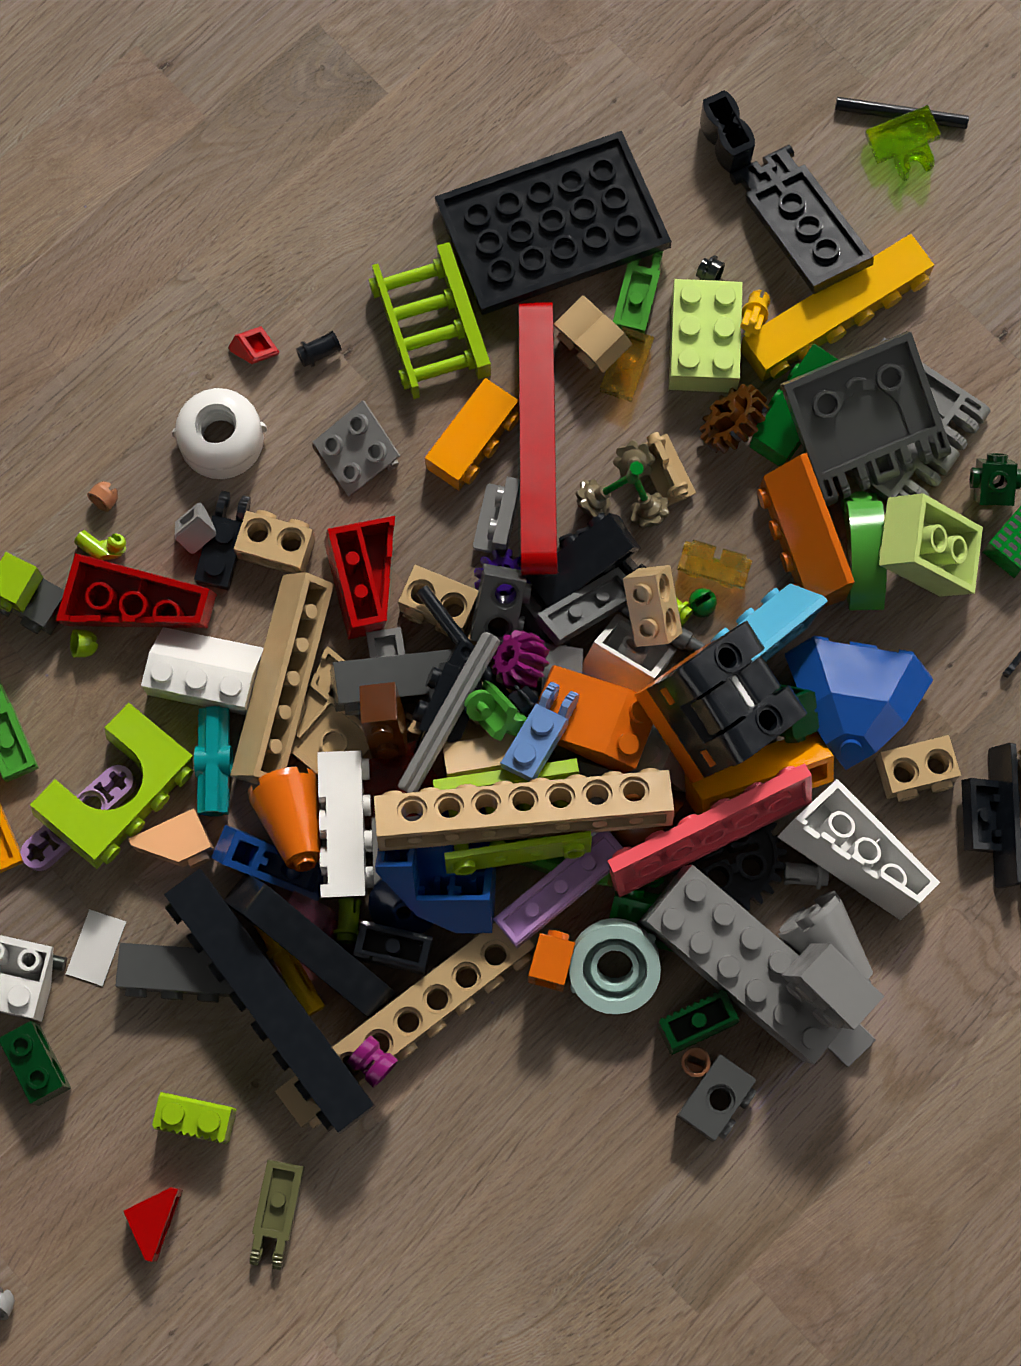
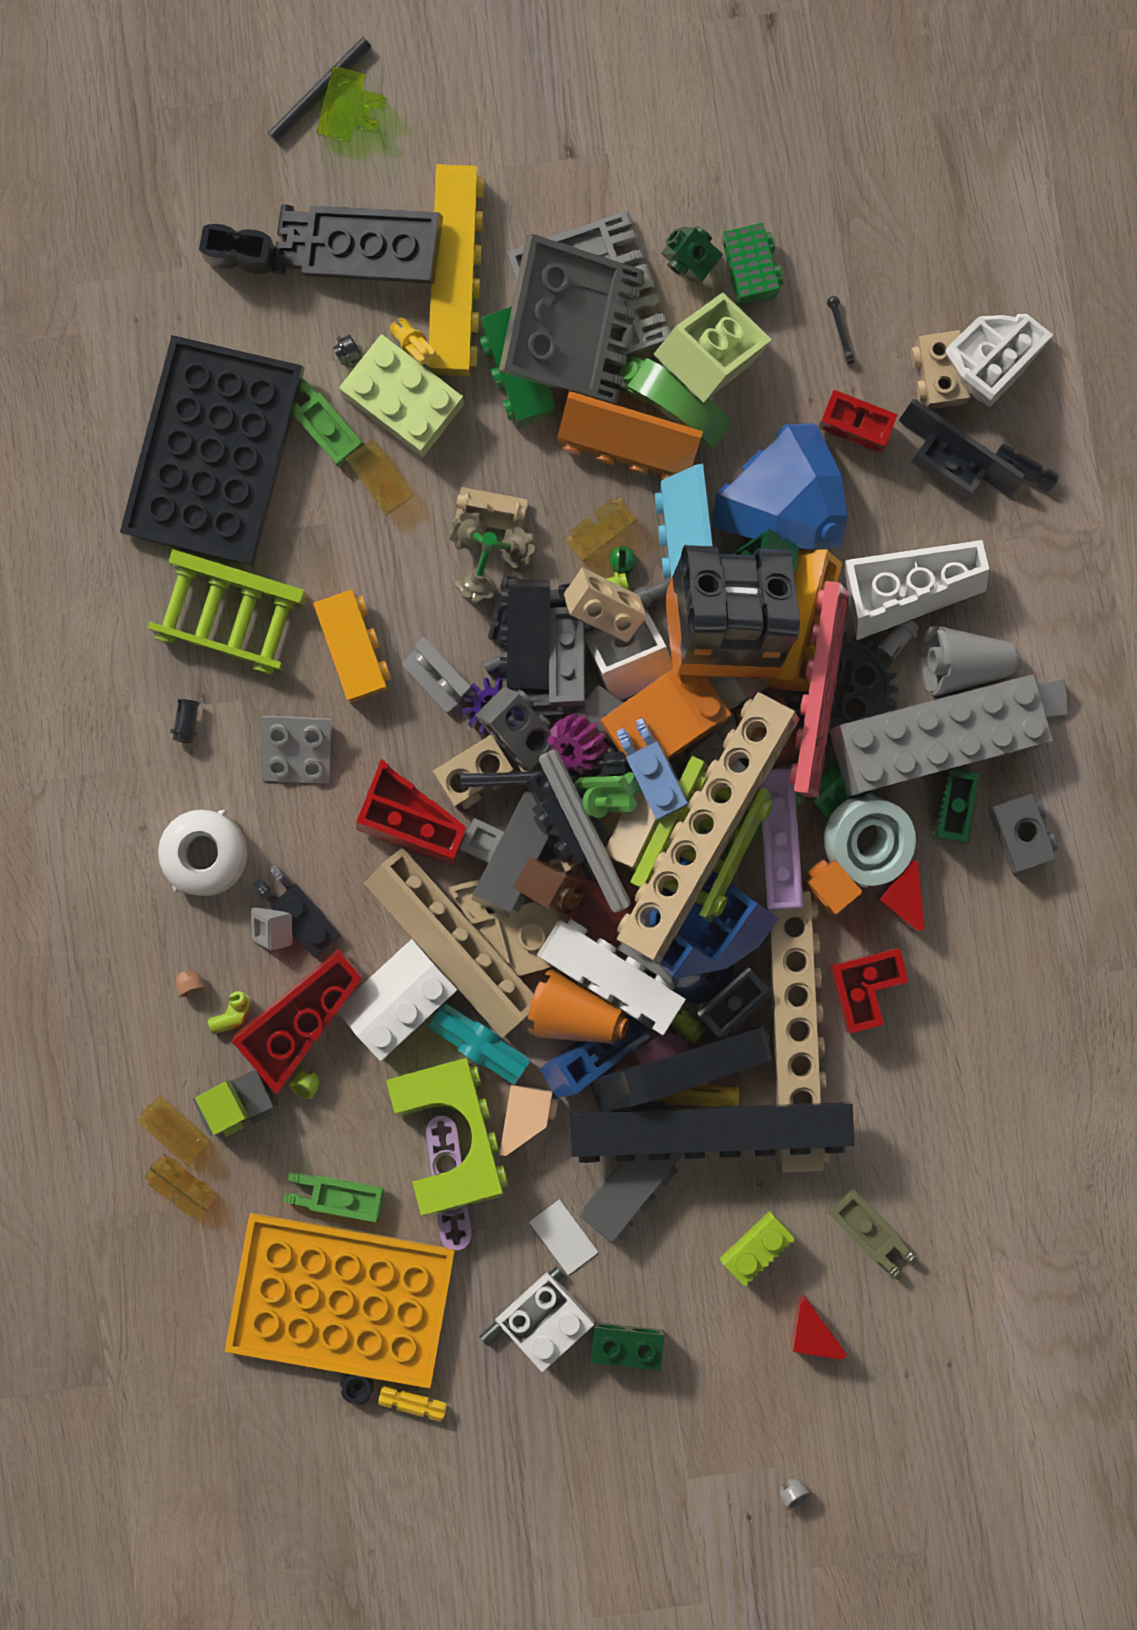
camera: 55 degrees left, 10 degrees up
(253, 345) = (144, 772): red slope -> none
(271, 550) = (335, 878): tan brick -> none
(364, 1057) = (807, 1084): magenta wheel -> none
(487, 1042) = (856, 986): none -> red brick
(537, 439) = (396, 596): beam -> none
(588, 1032) = (903, 897): none -> red slope
(592, 334) = (336, 488): tan brick -> none
(692, 1068) = (986, 834): nougat hinge -> none
(733, 418) = (491, 425): reddish brown gear -> none
(831, 986) = (1011, 688): light grey brick -> none
(915, 760) = (871, 486): tan brick -> none
(961, 709) = (857, 421): none -> red brick

